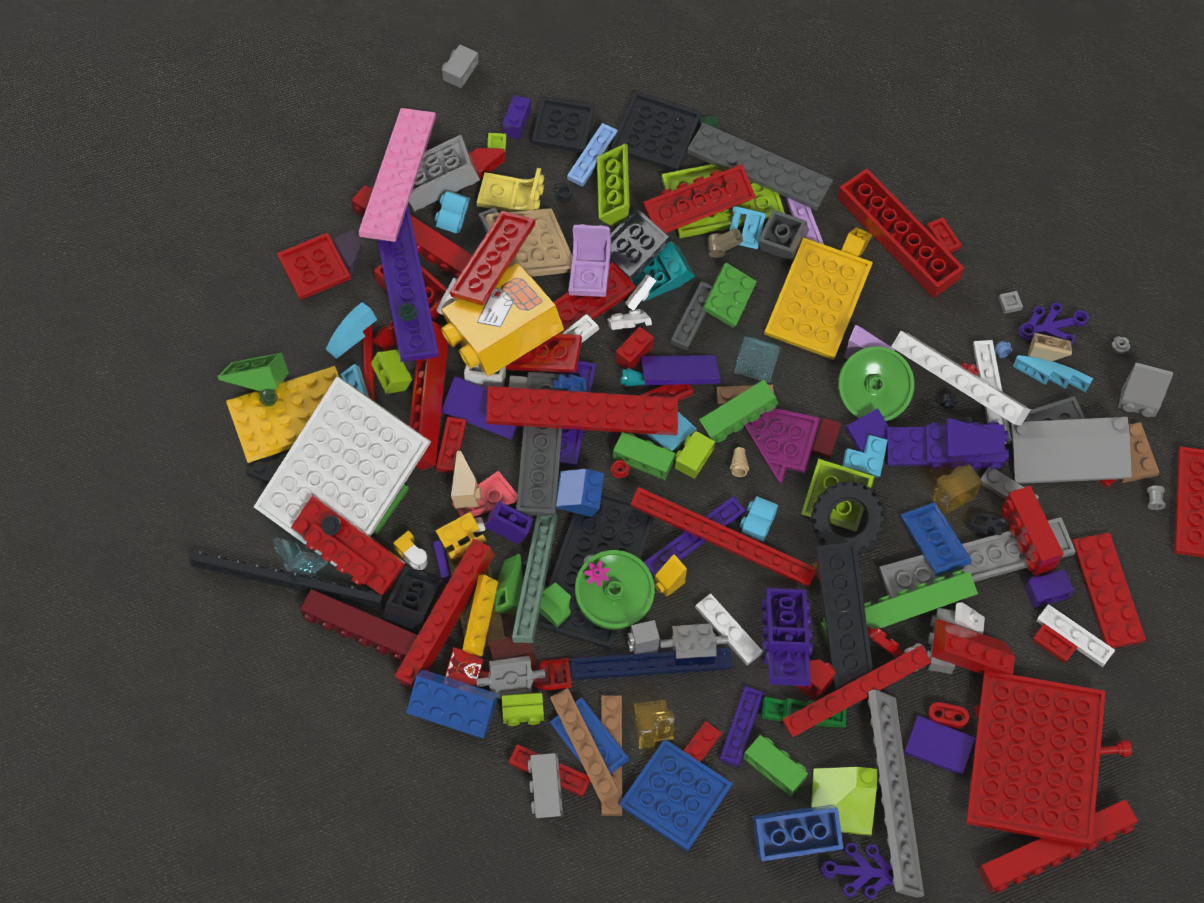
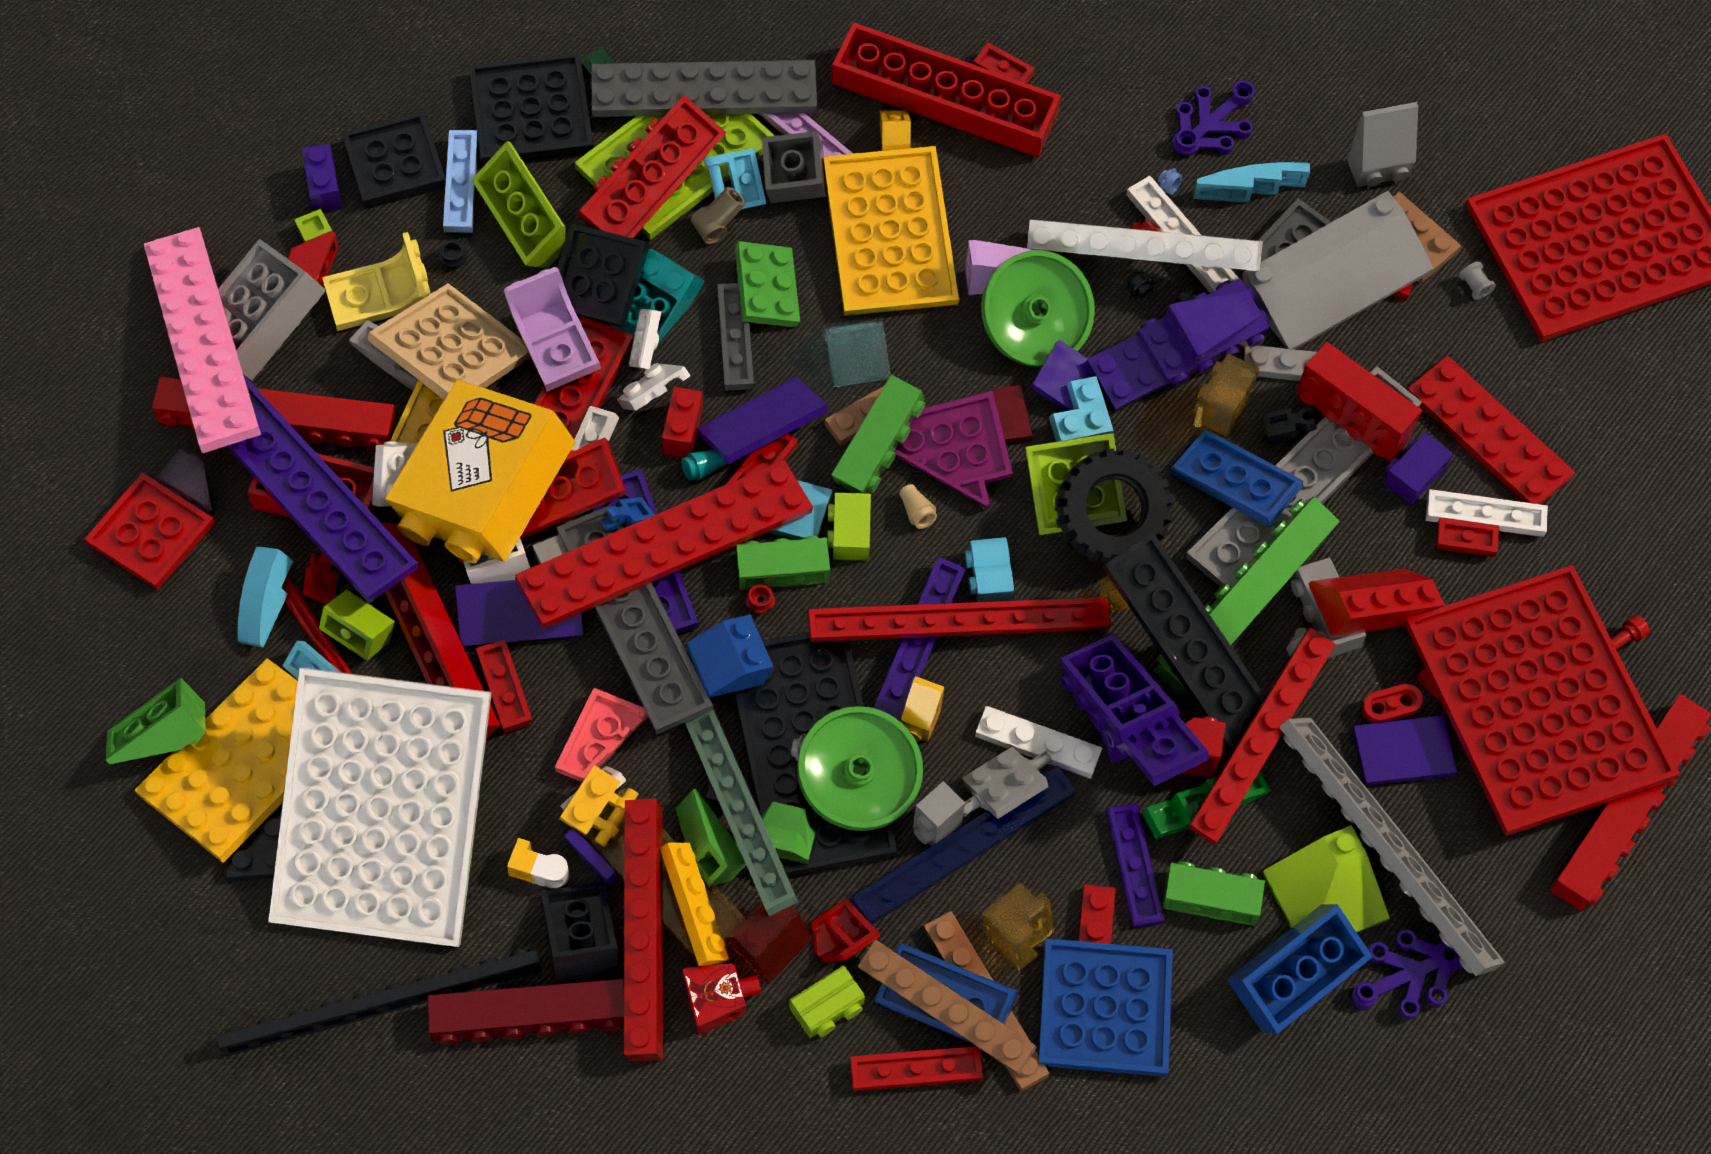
camera: 30 degrees left, 0 degrees up
(268, 397) = (199, 752): clear green plate -> none
(297, 561) = (383, 969): clear light blue bracket -> none
(331, 525) = (409, 888): black plate -> none
(349, 549) = (444, 906): red plate -> none
(407, 308) = (337, 520): plate -> none
(452, 211) = (310, 355): medium azure brick -> none
(452, 703) = (729, 1049): blue brick -> none
(460, 66) = (195, 144): light grey brick -> none
(465, 488) = (563, 731): tan slope -> none
(492, 258) = (417, 390): red plate -> none
(508, 522) = (654, 752): dark purple brick -> none
(510, 676) = (787, 967): light grey plate -> none
(545, 785) = (927, 1092): light grey brick -> none
(597, 577) = (823, 763): dark pink plant -> none
(888, 645) = (1261, 651): red plate -> none
(969, 618) = (1343, 560): white plate -> none
(1010, 302) = (1141, 114): light grey plate -> none
(1049, 347) = (1231, 149): tan slope -> none
(1119, 349) = (1311, 108): light grey plate -> none

